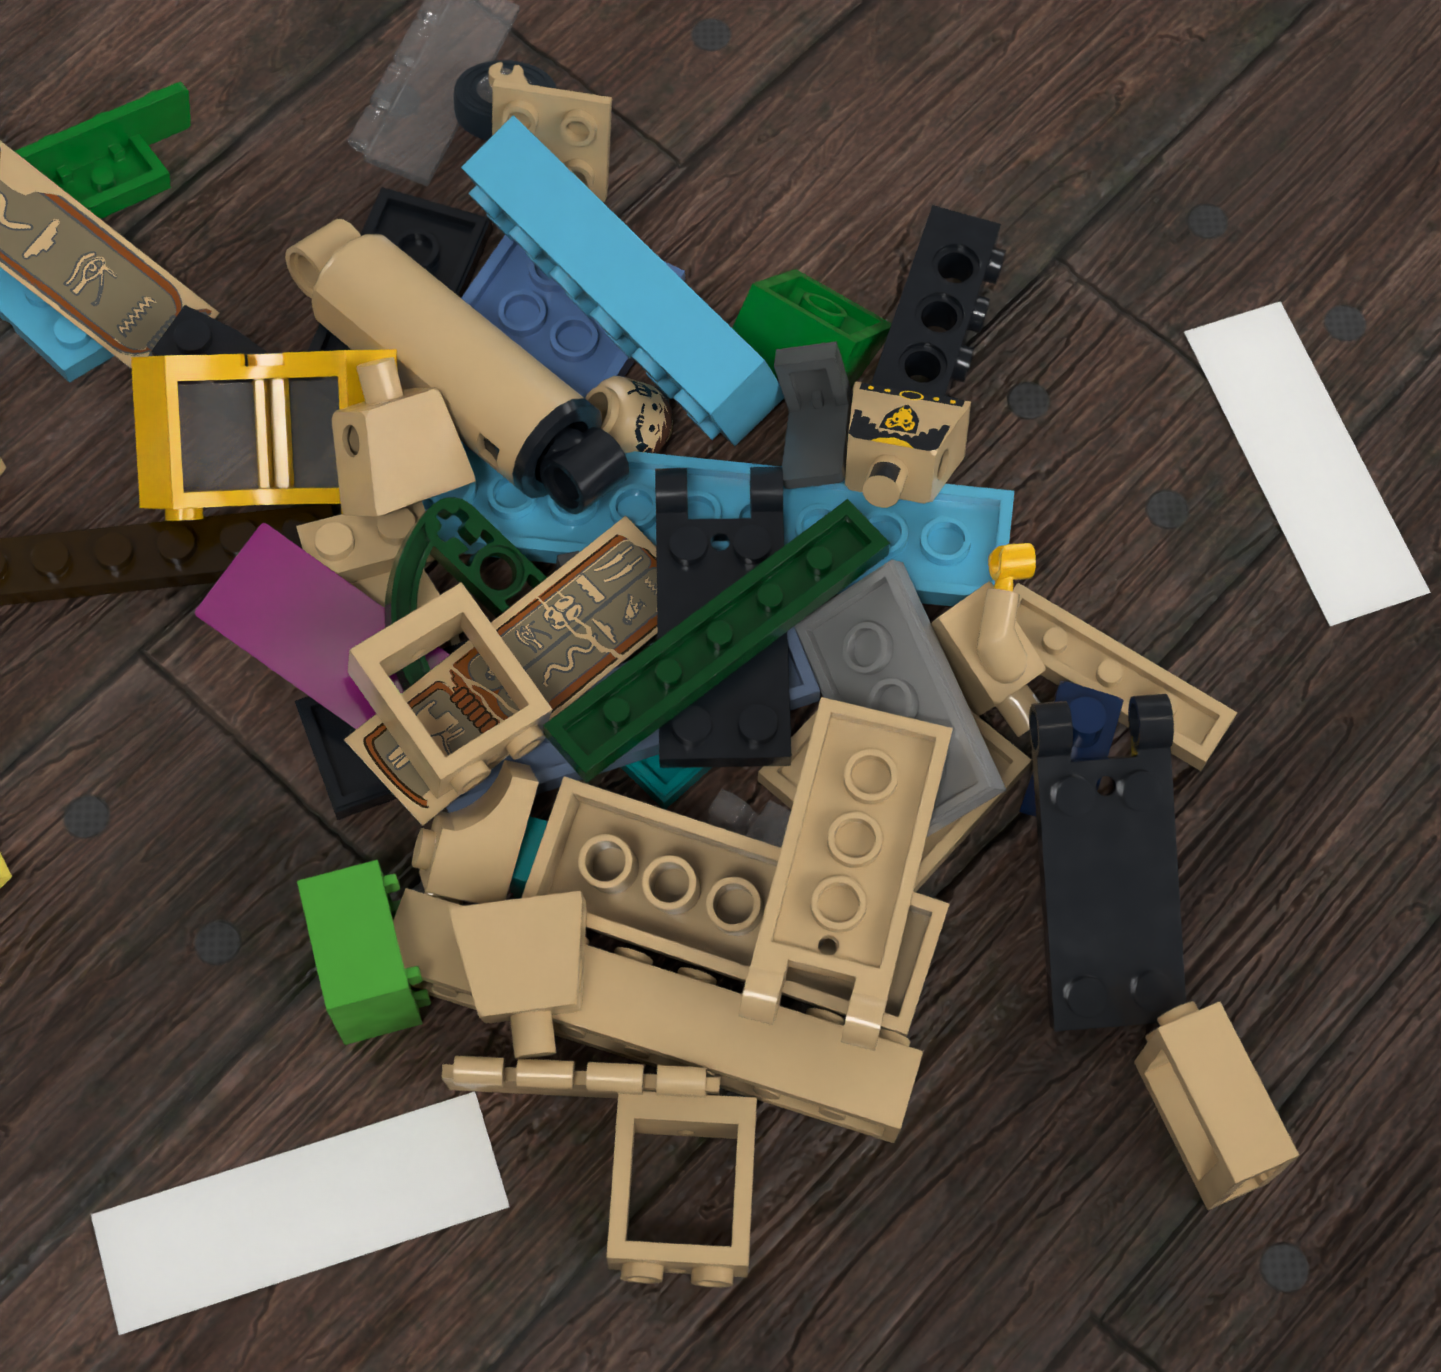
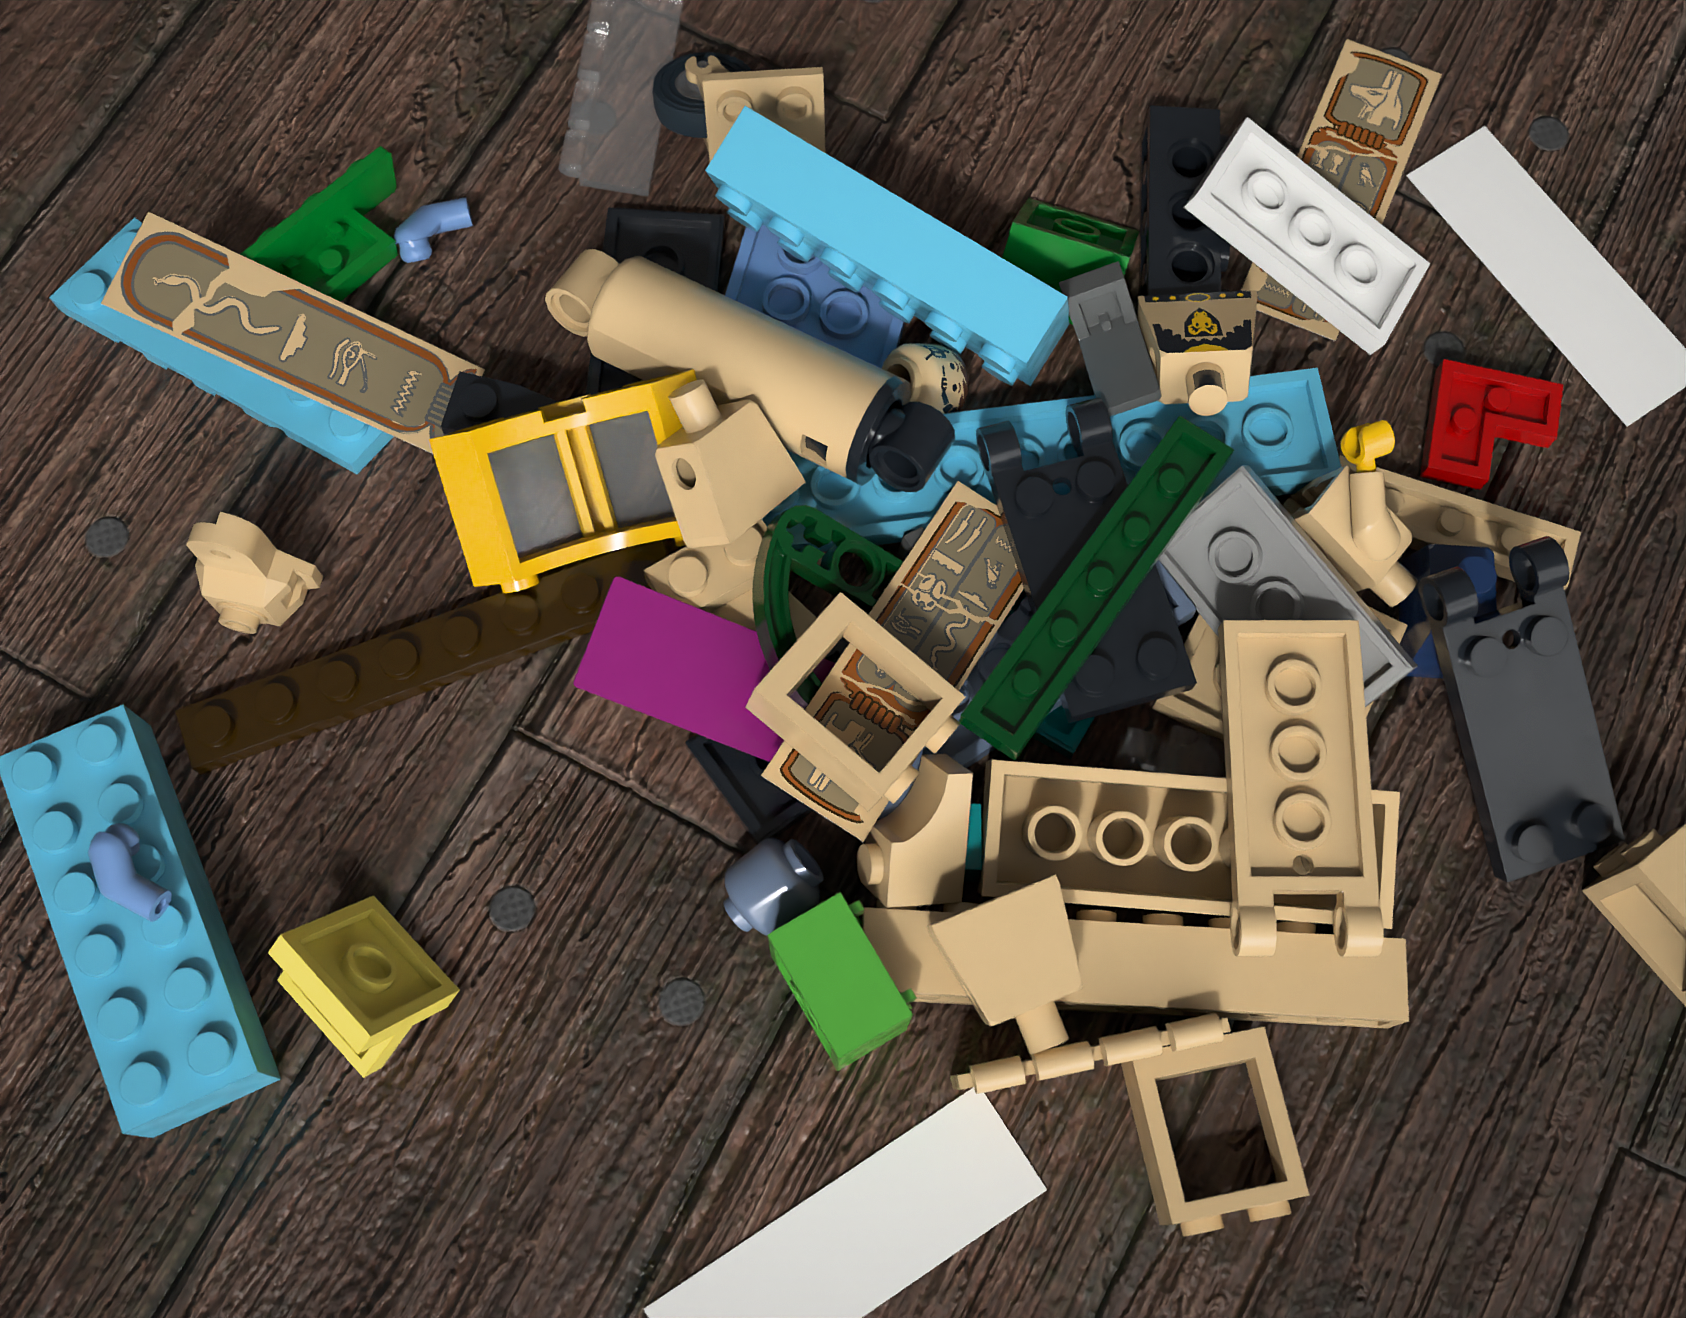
camera: 15 degrees left, 5 degrees up
(207, 162) = (426, 222): none -> medium blue arm
(329, 843) = (772, 885): none -> sand blue head
(1049, 364) = (1308, 236): none -> white plate
(1111, 330) = (1359, 147): none -> sticker
(1174, 568) = (1473, 408): none -> red plate

